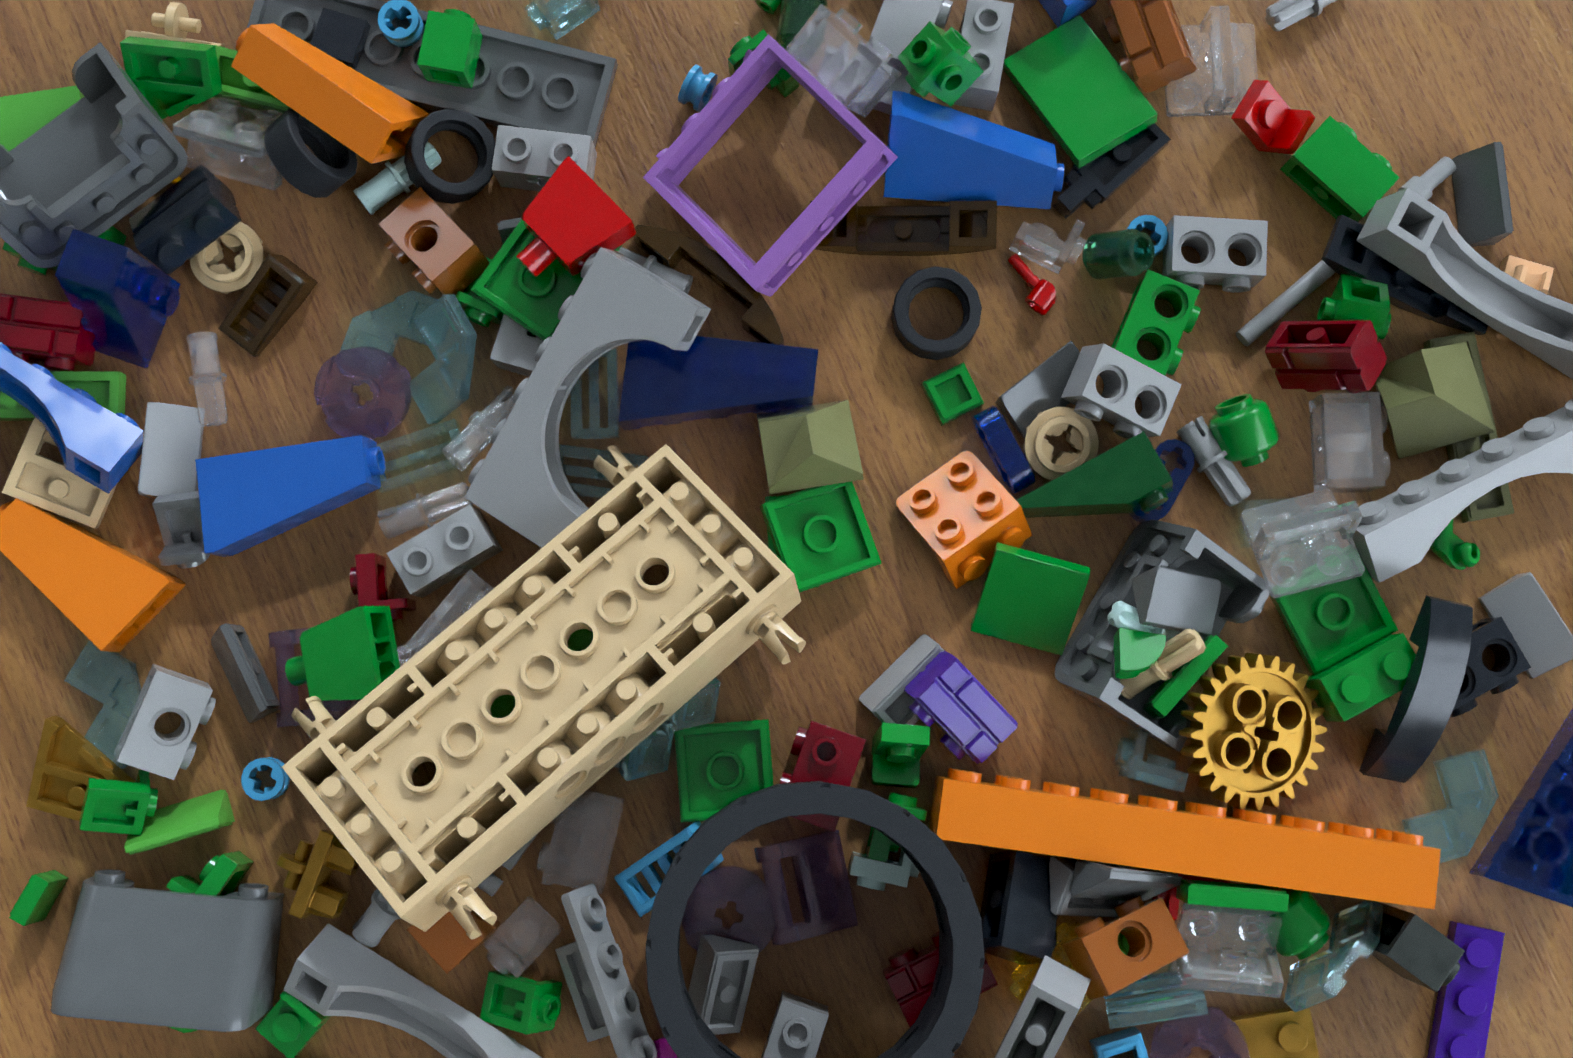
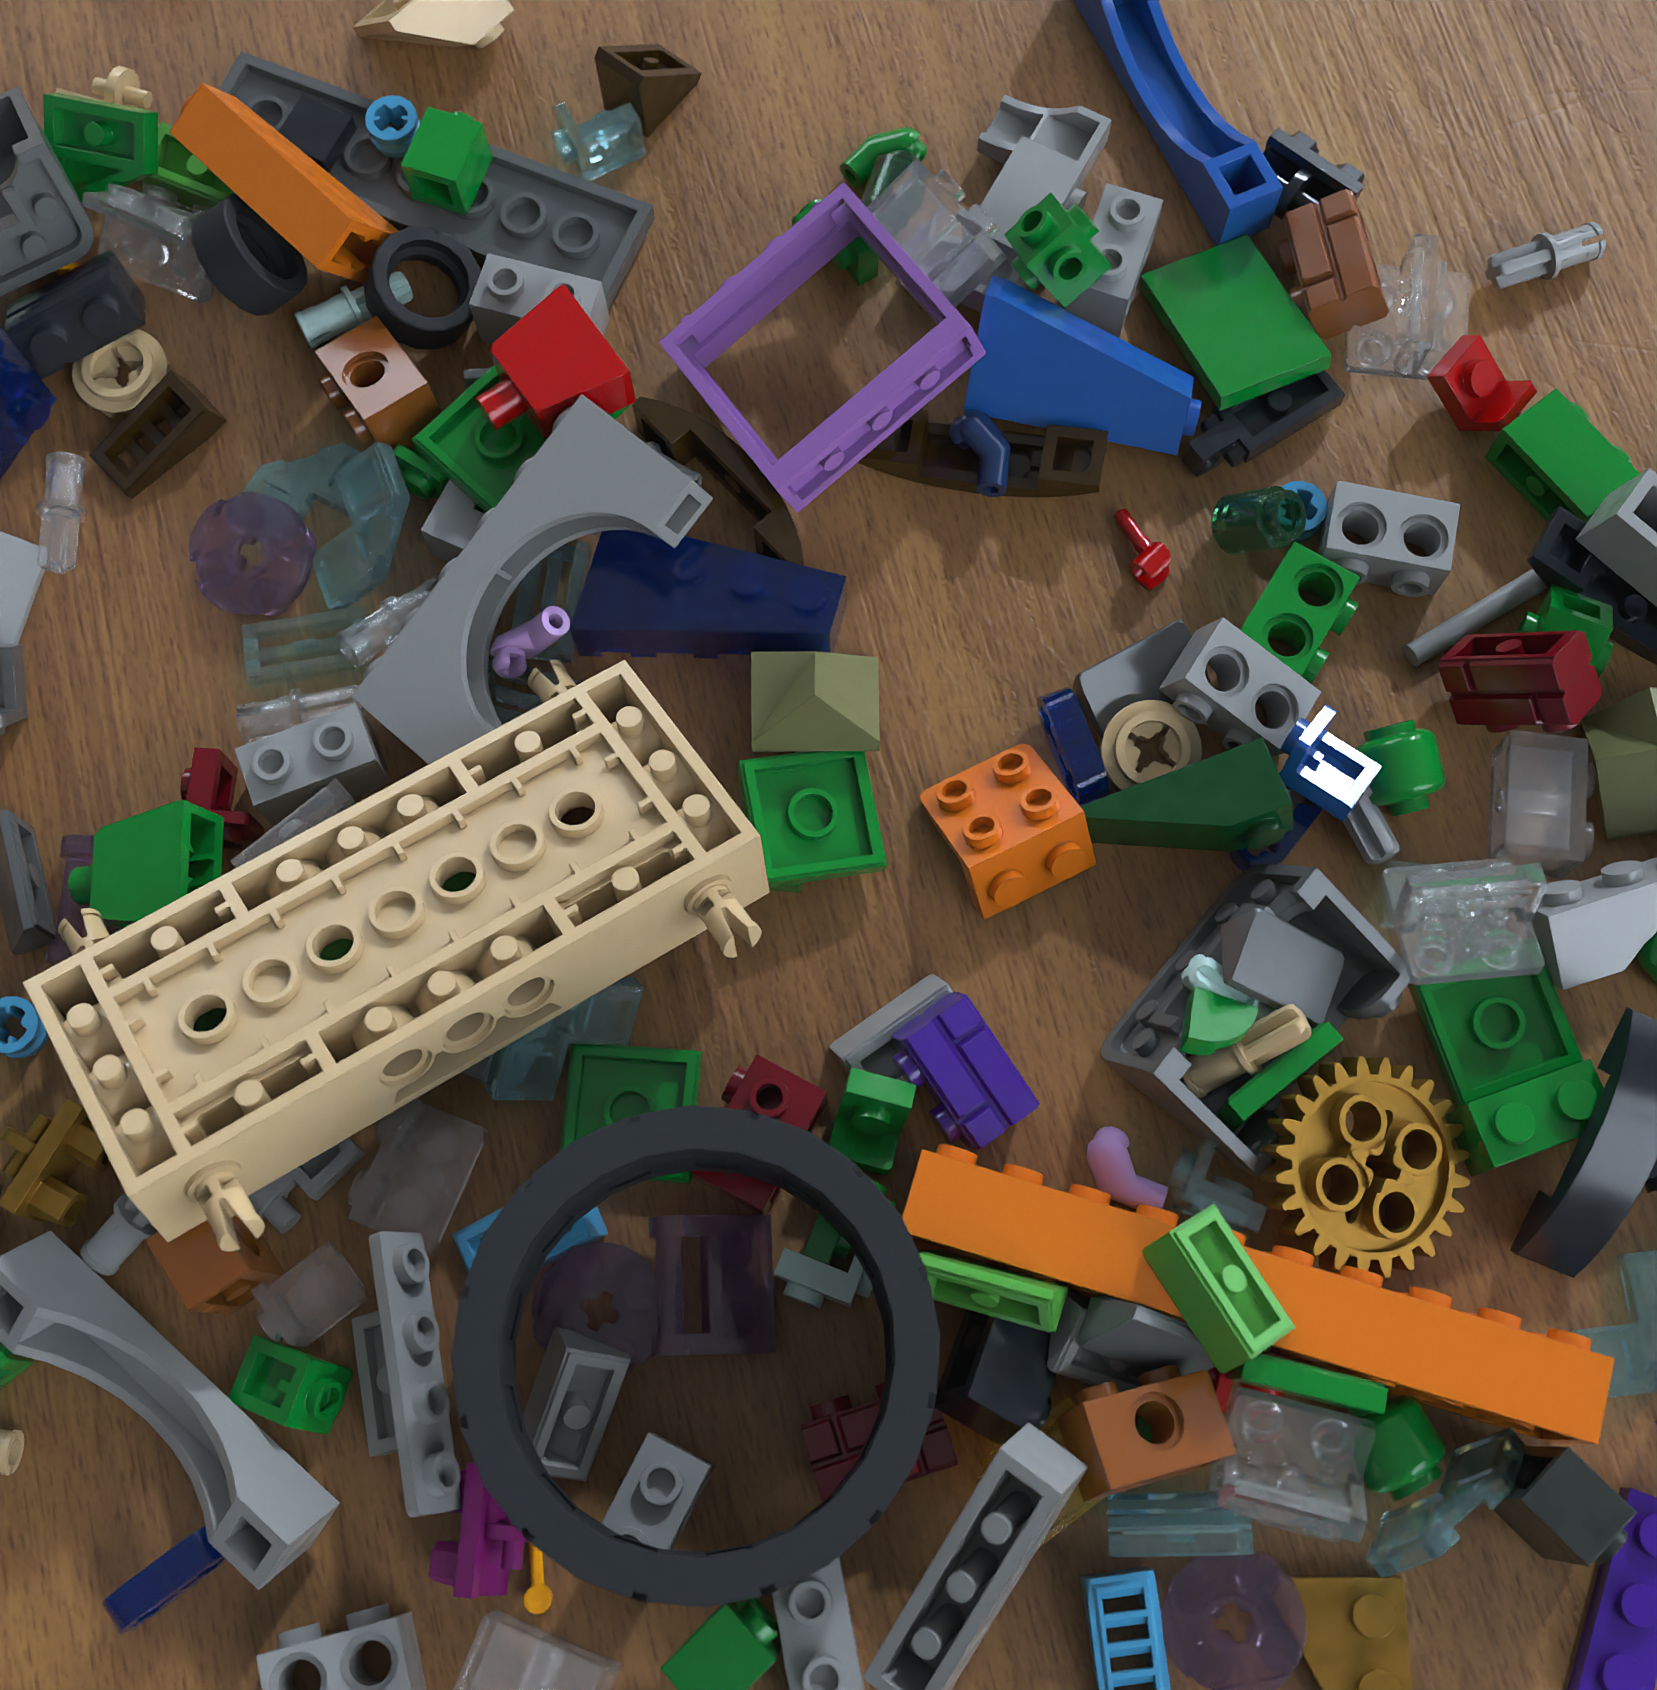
camera: 10 degrees right, 10 degrees down
(279, 488) = (120, 655): blue slope -> none
(586, 430) = (528, 641): none -> lavender arm
(697, 88) = (744, 248): dark azure bush -> none
(906, 220) = (981, 434): none -> dark blue arm
(941, 278) = (1017, 521): black tyre -> none
(952, 394) = (1016, 670): green tile -> none
(1007, 866) = (995, 1290): none -> bright green slope
(1030, 598) = (1080, 941): green tile -> none
(1043, 247) = (1163, 503): clear bracket -> none
(1077, 761) = (1115, 1172): none -> lavender arm
(1164, 846) = (1218, 1289): none -> bright green slope
(1192, 444) = (1325, 766): none -> blue bracket

